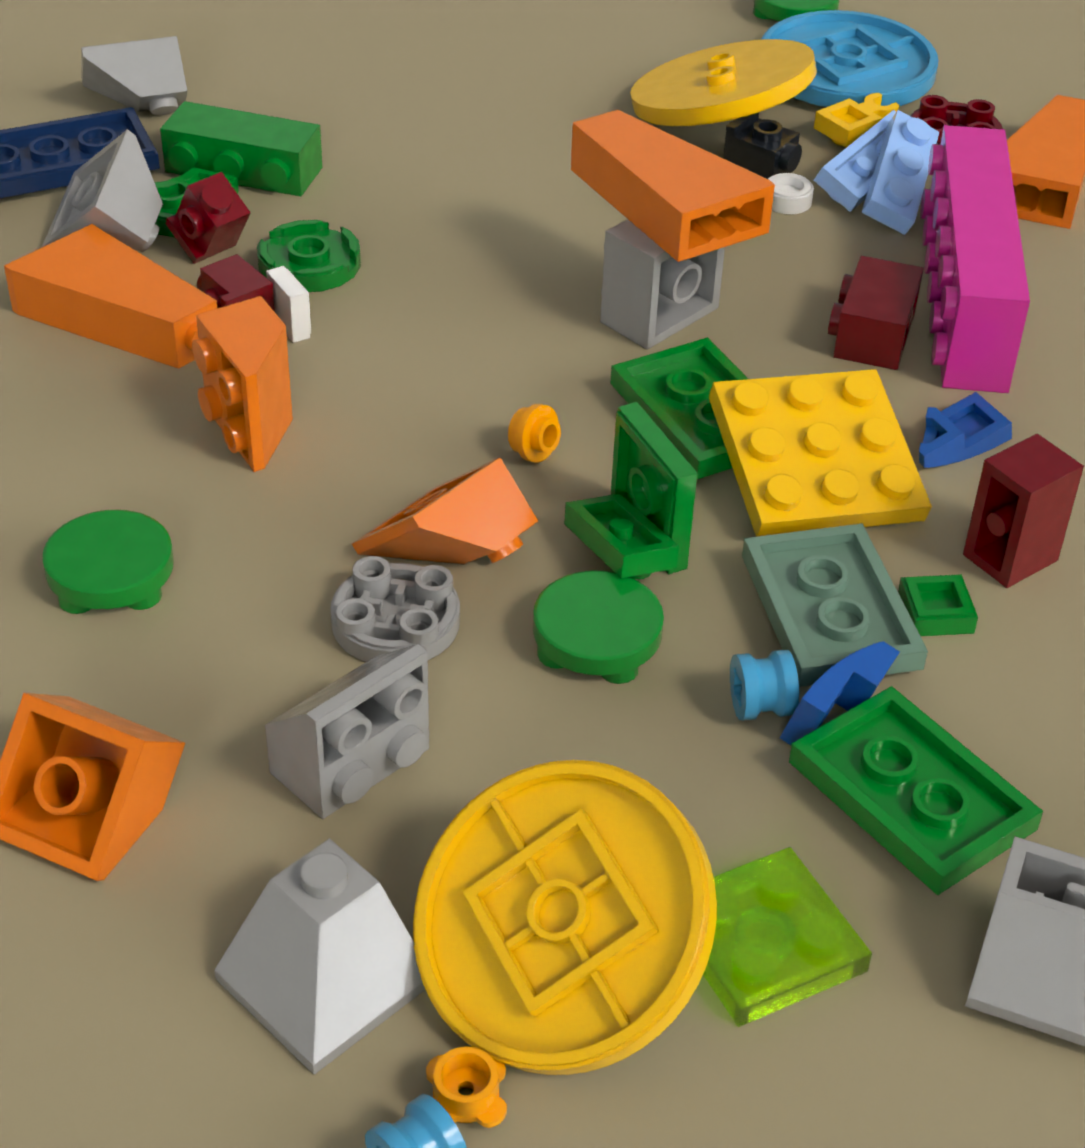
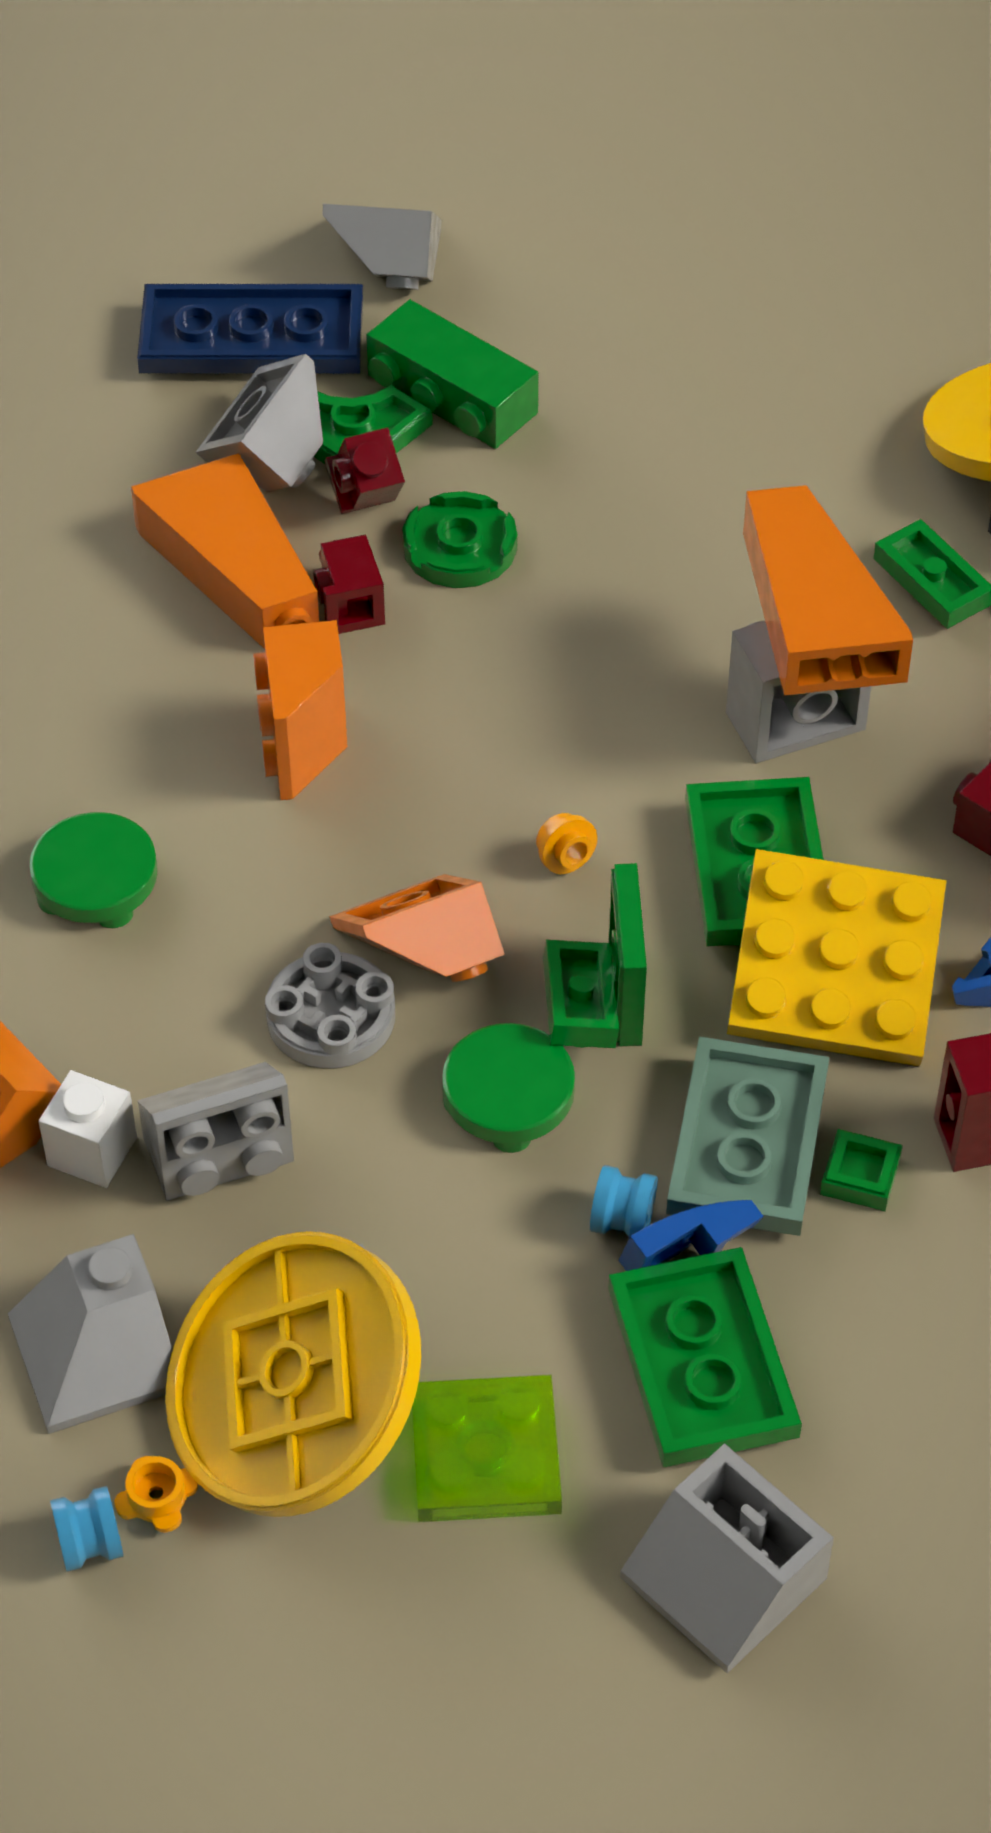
camera: 25 degrees right, 10 degrees up
(220, 770) = (88, 1128): none -> white brick
(291, 303) = (400, 606): white tile -> none

